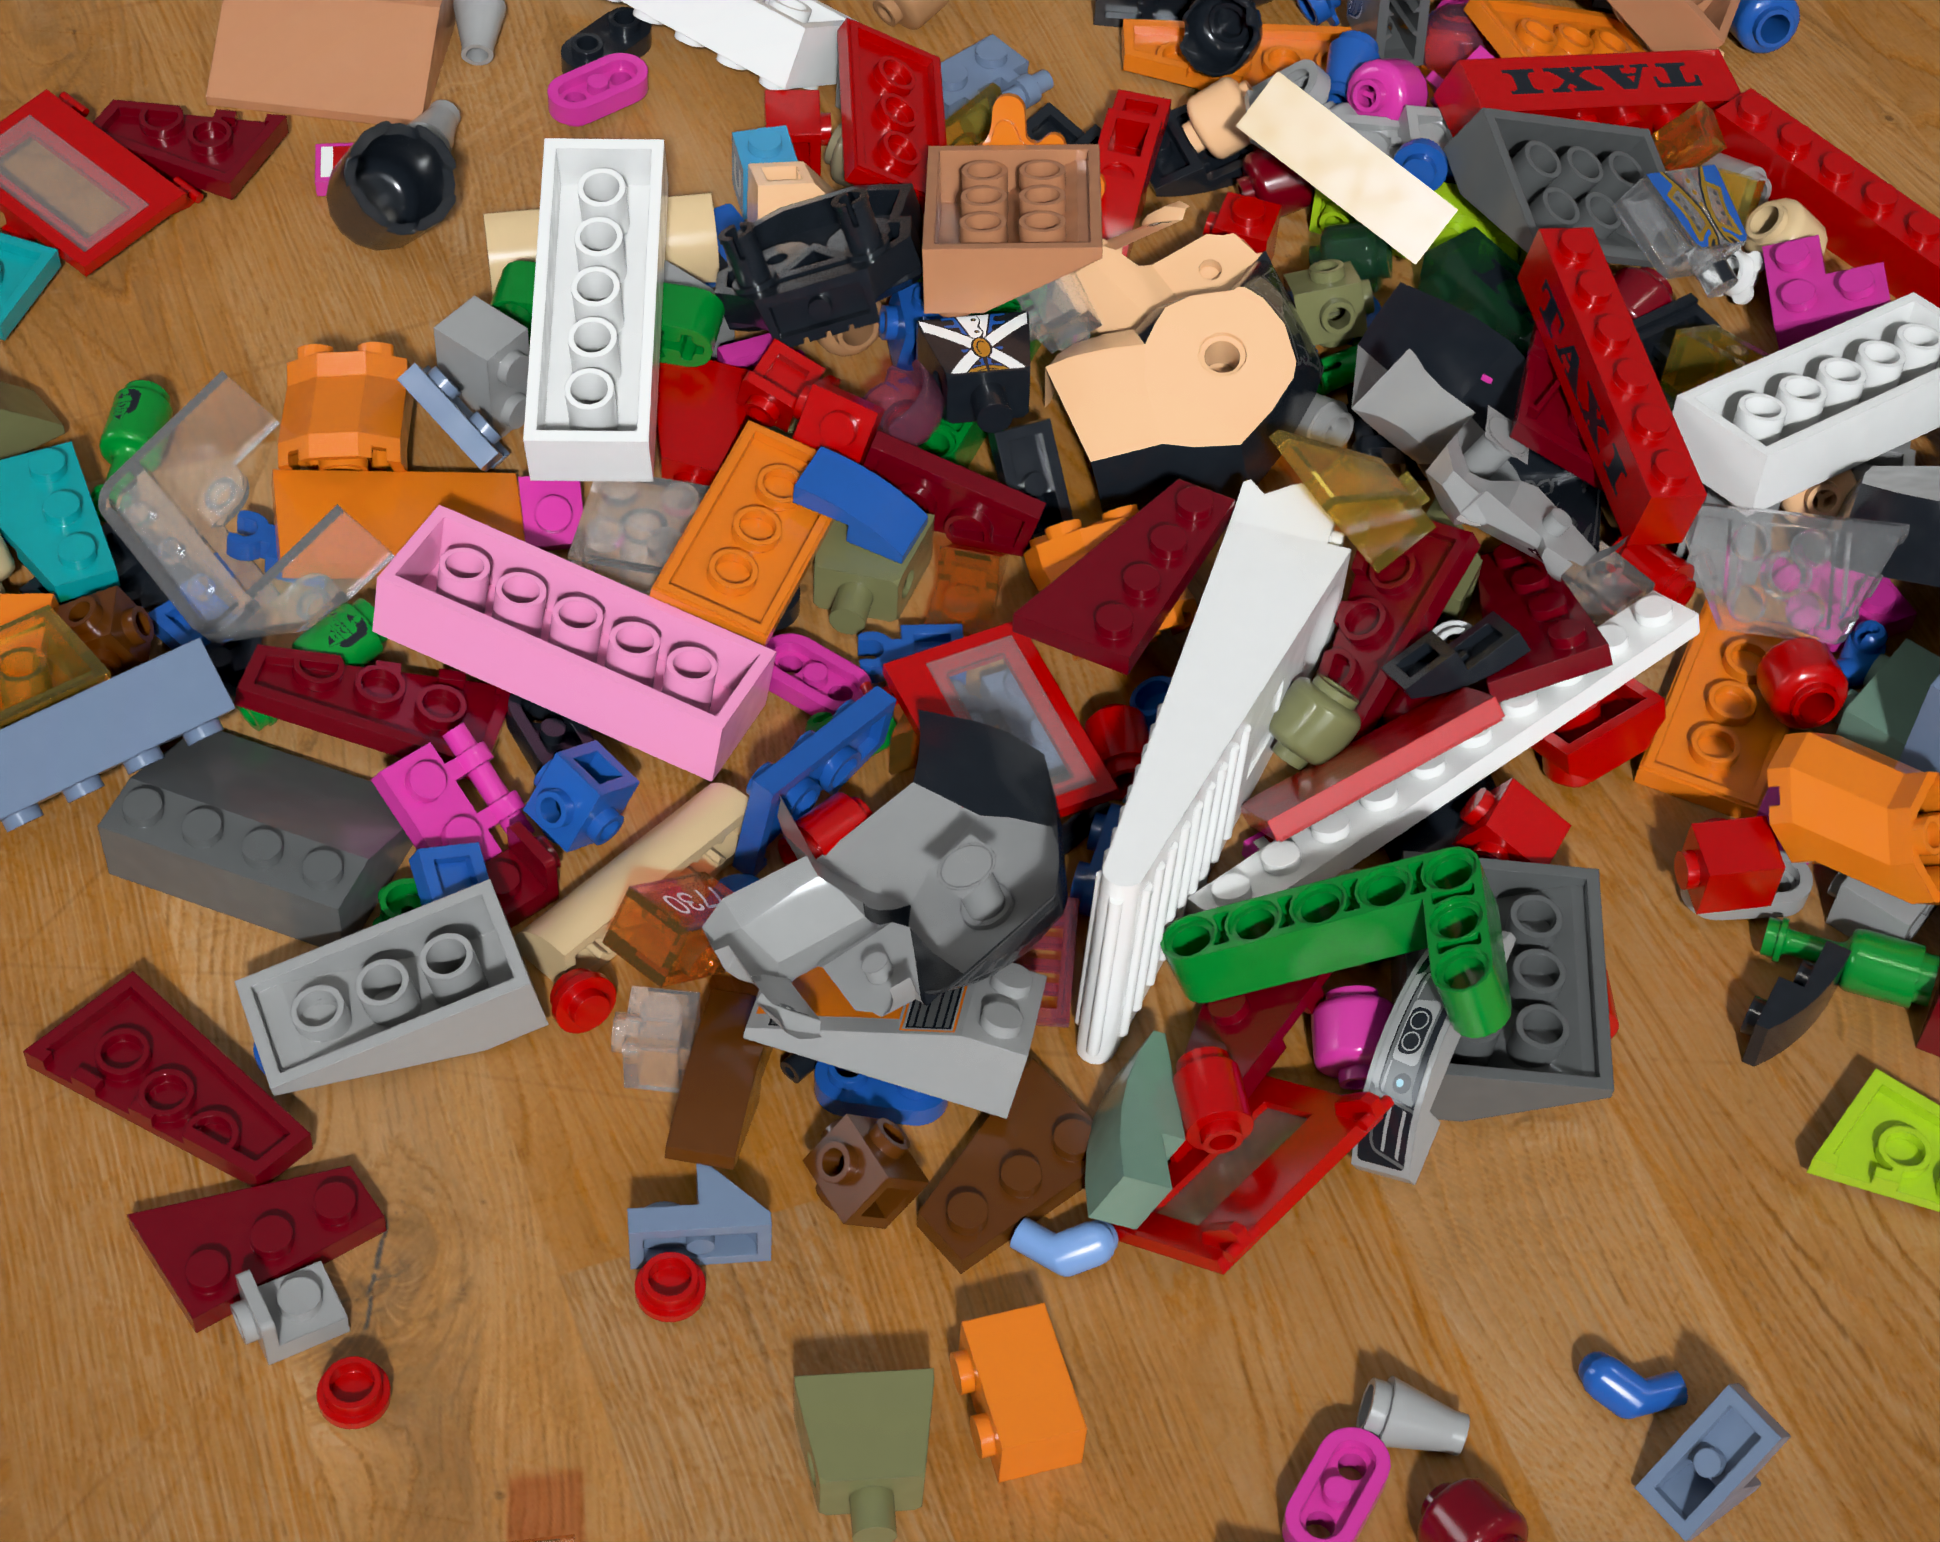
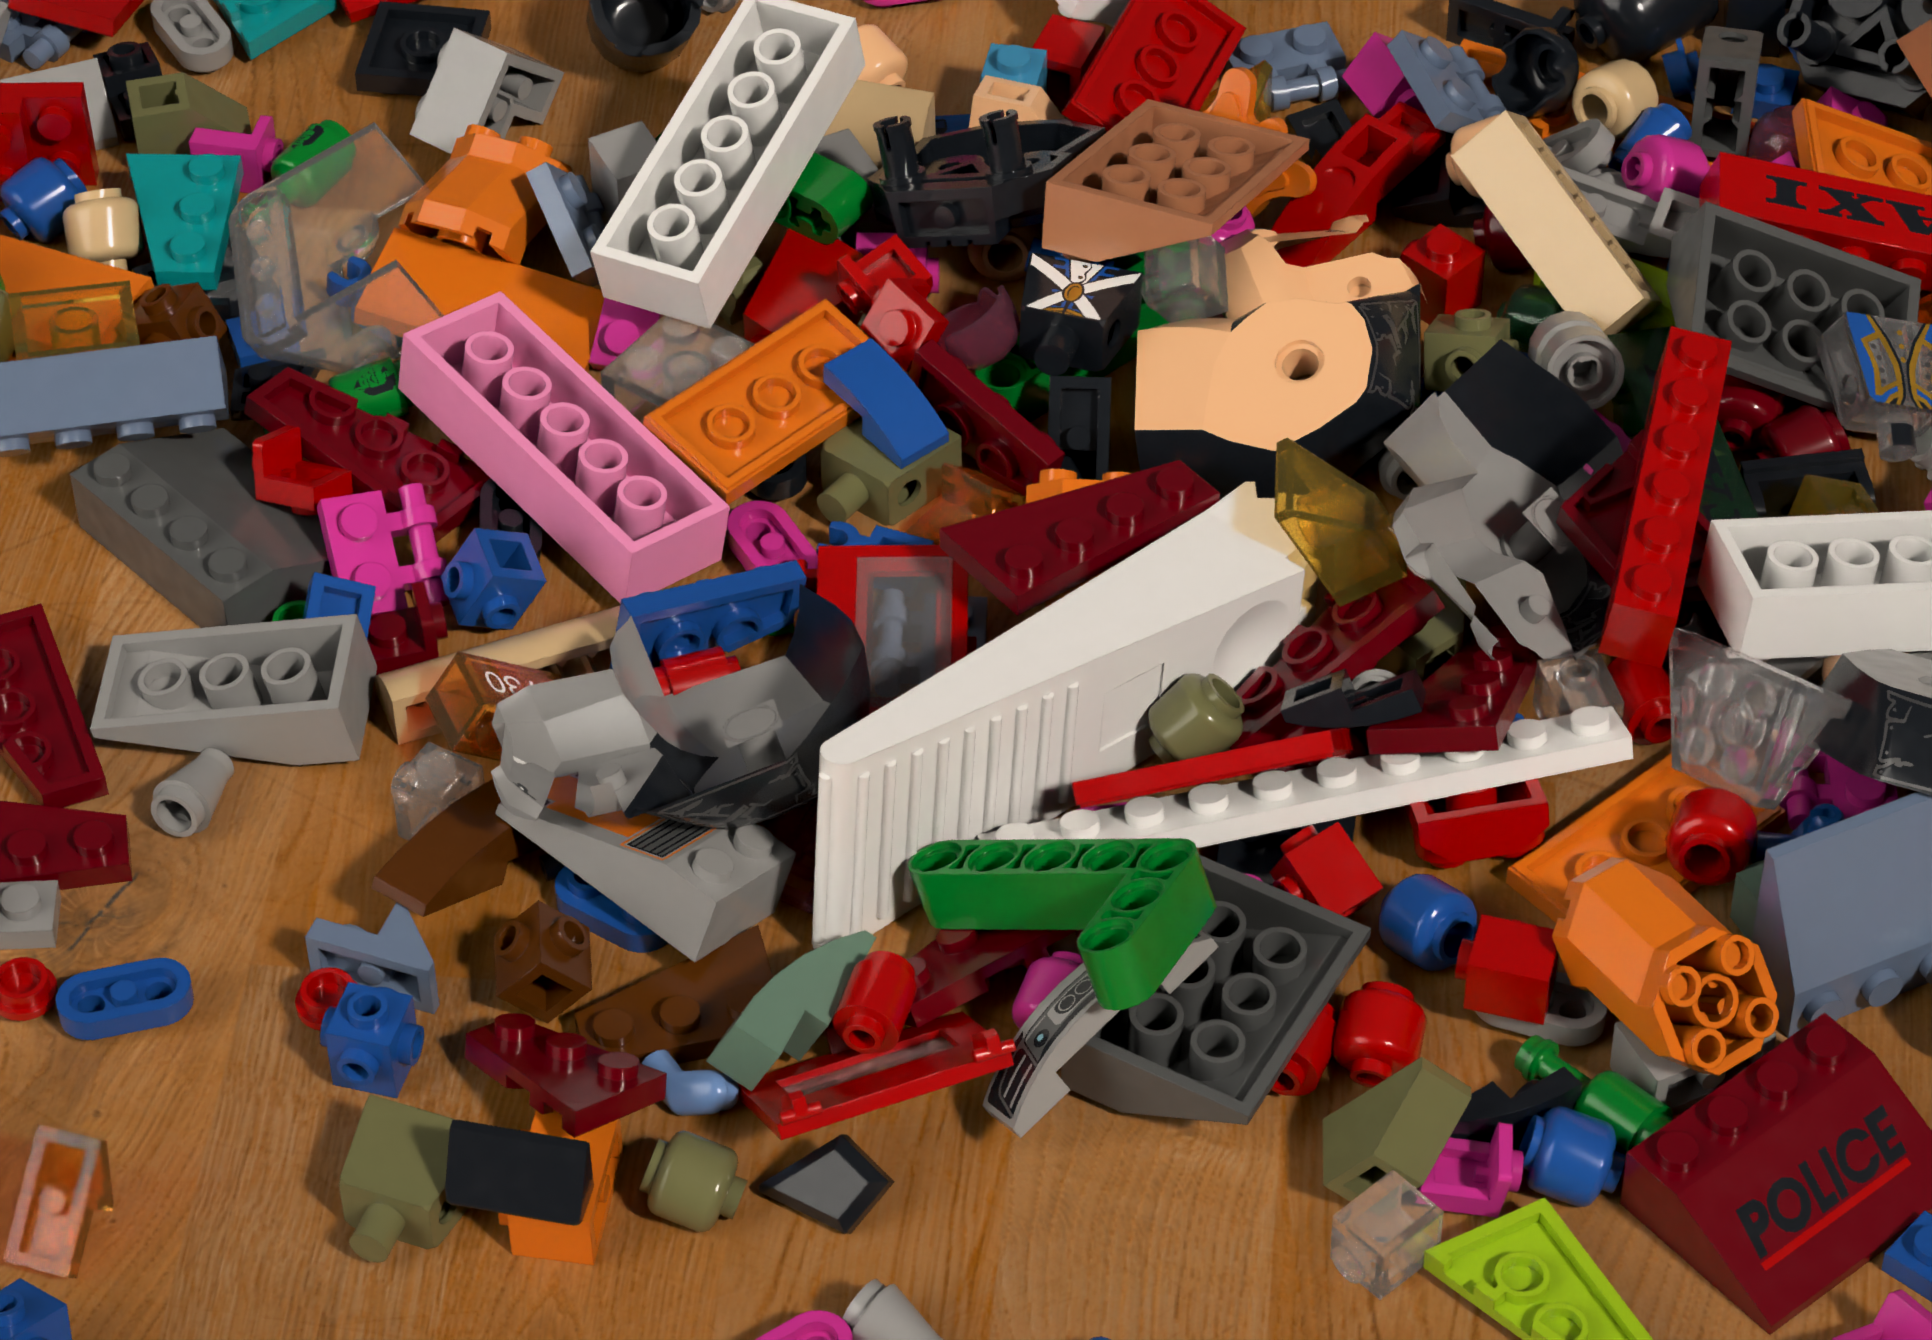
camera: 30 degrees right, 5 degrees down
(77, 428) = (256, 149): none -> dark pink bracket
(177, 284) = (406, 45): none -> black plate
(272, 313) = (482, 86): none -> light grey brick
(325, 760) = (290, 481): none -> red bracket
(405, 1120) = (189, 797): none -> light grey cone
(462, 1364) = (124, 998): none -> blue plate
(582, 1000) = (393, 744): red plate -> none
(748, 1313) = (372, 1039): none -> blue brick
(976, 1281) = (564, 1072): none -> dark red wing
(1003, 1407) = (518, 1172): none -> black slope
(1090, 71) = (1379, 79): none -> dark pink brick
(1138, 1343) = (692, 1181): none -> olive head
(1152, 62) = (1444, 81): none -> sand blue plate
(1262, 1295) = (831, 1184): none -> black piece
(1298, 33) = (1615, 95): none -> tan head
(1424, 161) = (1648, 247): blue plate -> none
(1428, 270) = (1579, 356): none -> light grey wheel
(1615, 840) = (1427, 921): none -> blue head
(1644, 964) = (1378, 1032): none -> red head
(1729, 1061) = (1391, 1128): none -> olive slope
(1776, 1156) = (1384, 1234): none -> clear brick
(1799, 1067) = (1475, 1174): none -> dark pink bracket
(1868, 1021) = (1570, 1156): none -> blue head

